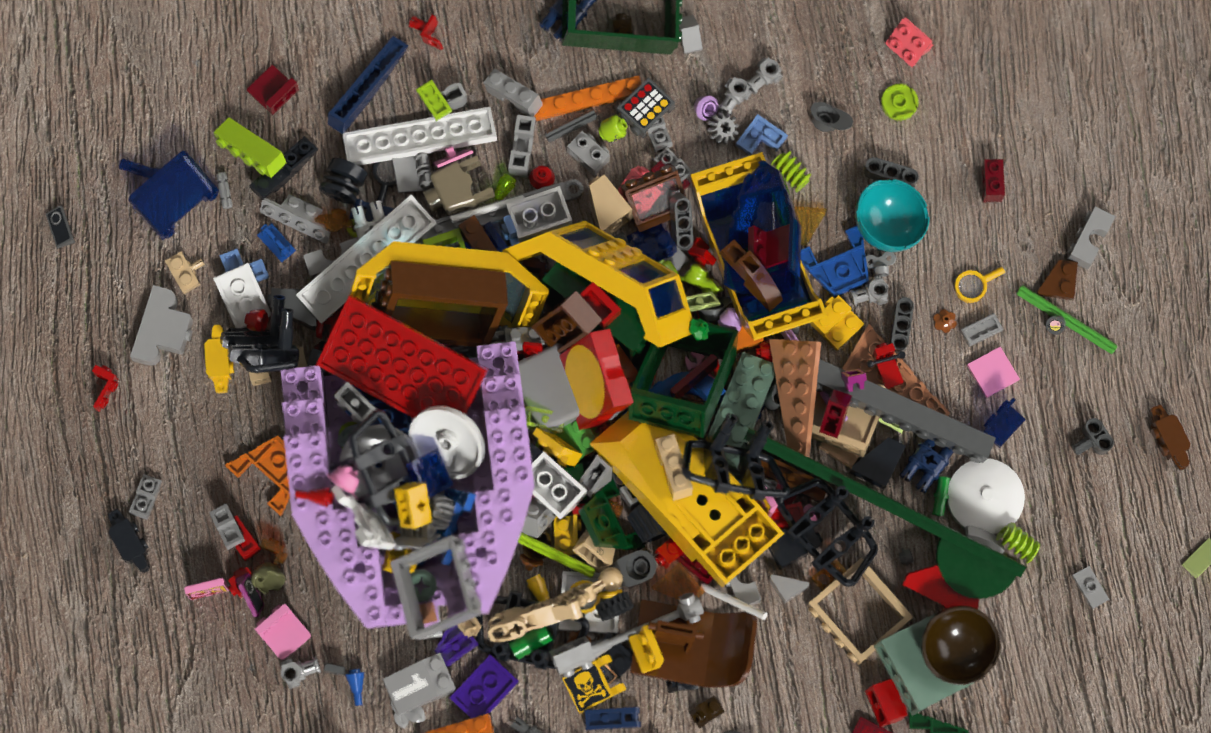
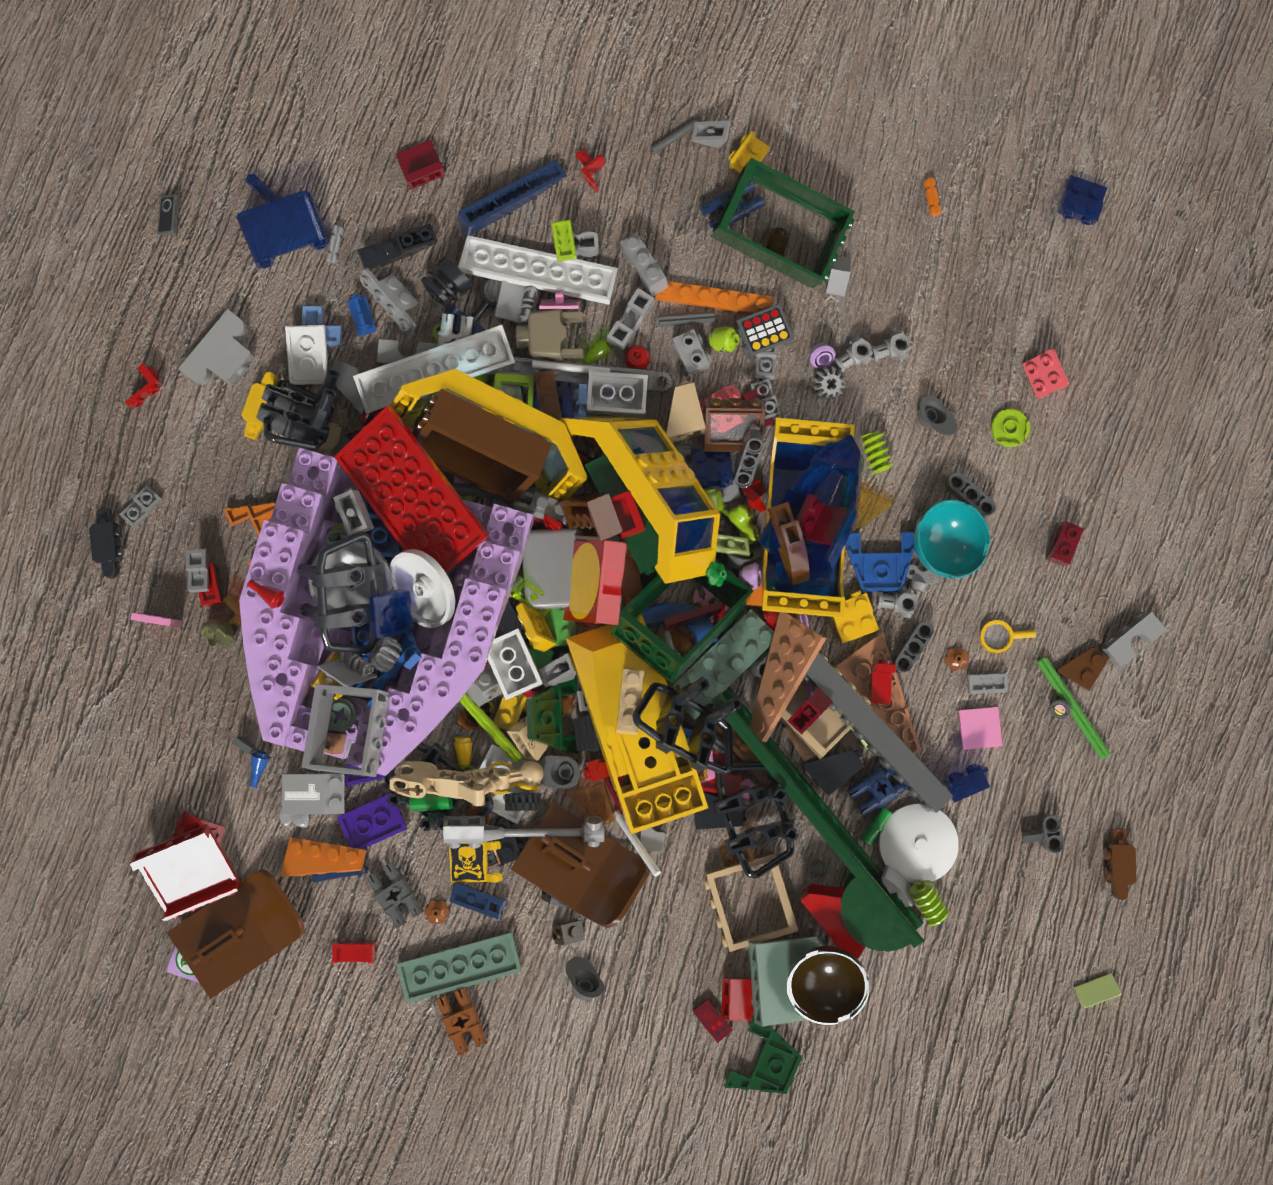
camera: 25 degrees right, 10 degrees up
(184, 271) = (265, 307): tan plate -> none
(233, 587) = (185, 624): red bracket -> none
(249, 147) = (372, 213): lime brick -> none
(250, 594) = (194, 642): slope -> none
(256, 320) = (309, 384): red cone -> none
(282, 631) = (211, 688): bright pink bracket -> none
(301, 669) = (212, 732): light grey connector -> none
(335, 220) = (423, 318): clear orange plate -> none
(345, 479) = (301, 589): bright pink piece -> none
(372, 530) = (309, 650): white wing -> none
(413, 505) = (359, 639): yellow brick -> none
(646, 650) = (532, 856): yellow bracket -> none
(761, 131) = (865, 401): medium blue plate -> none
(787, 587) = (693, 850): light grey slope -> none
(852, 377) = (842, 684): magenta tile -> none
(901, 355) = (899, 677): black hinge -> none
(1090, 587) = (977, 971): light grey plate -> none

